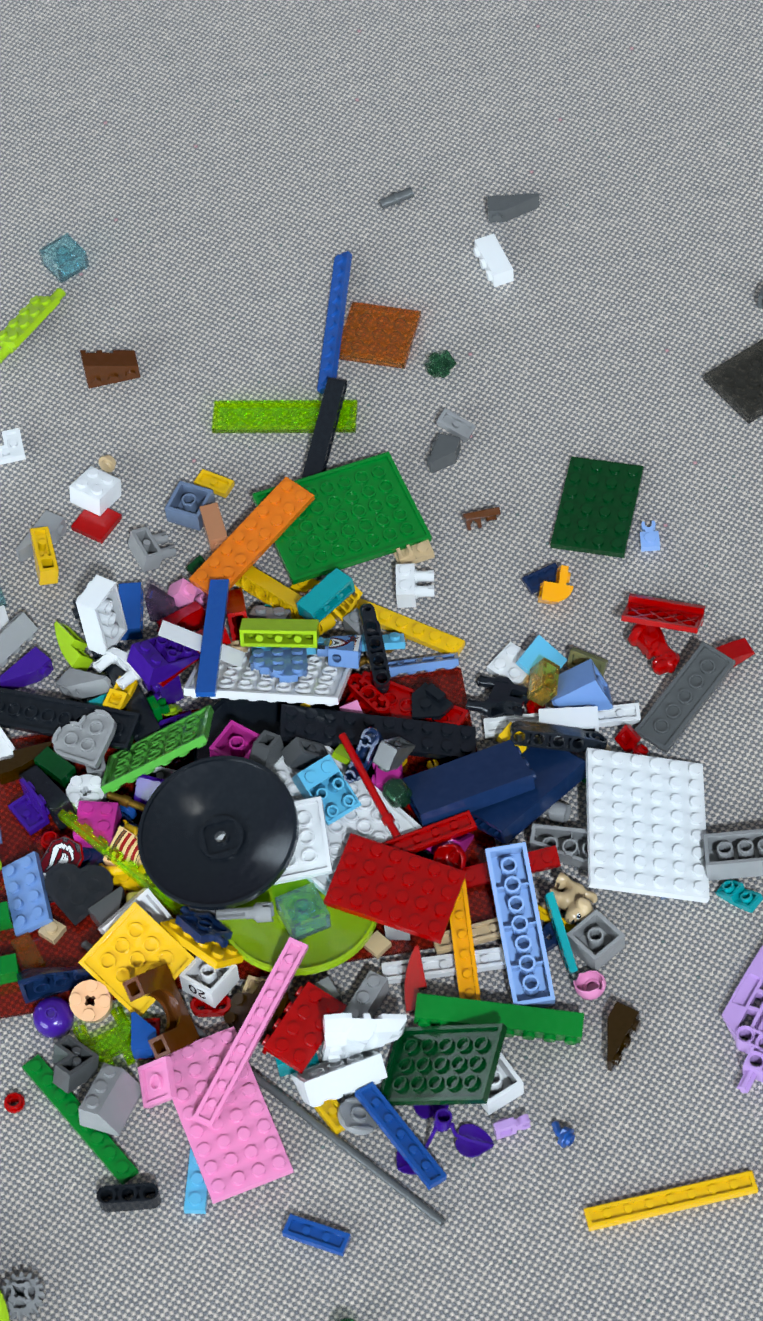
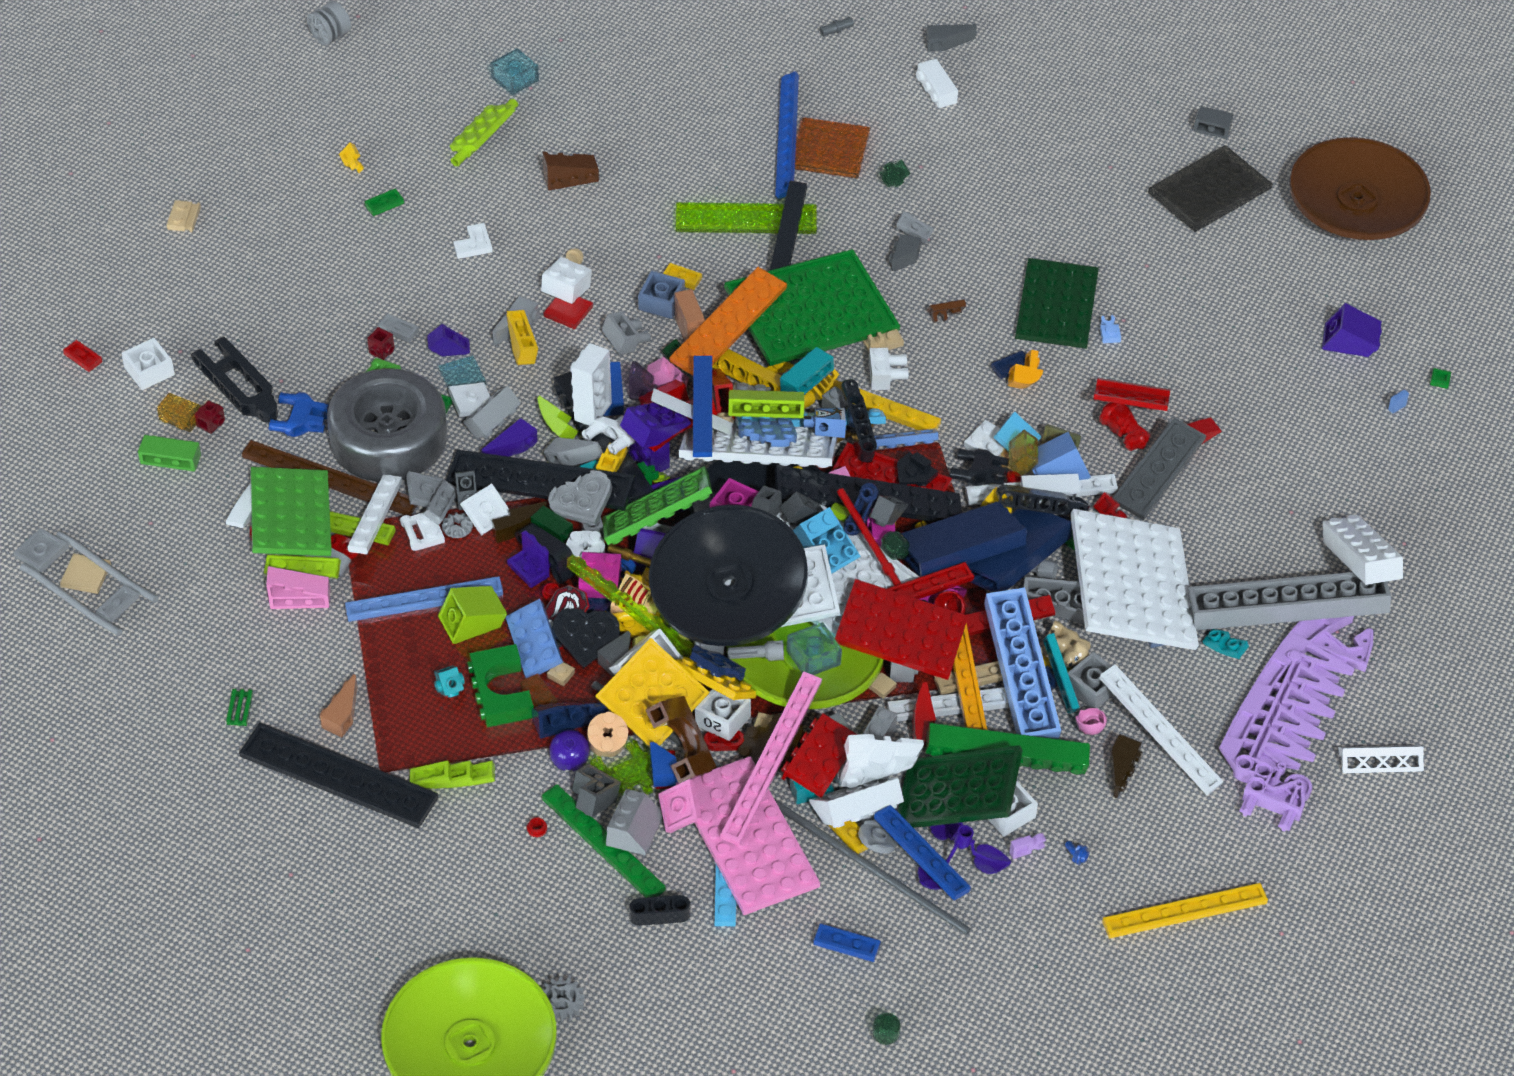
camera: 10 degrees left, 5 degrees down
(371, 702) = (851, 455): red beam -> none
(660, 997) = (1161, 729): none -> white plate

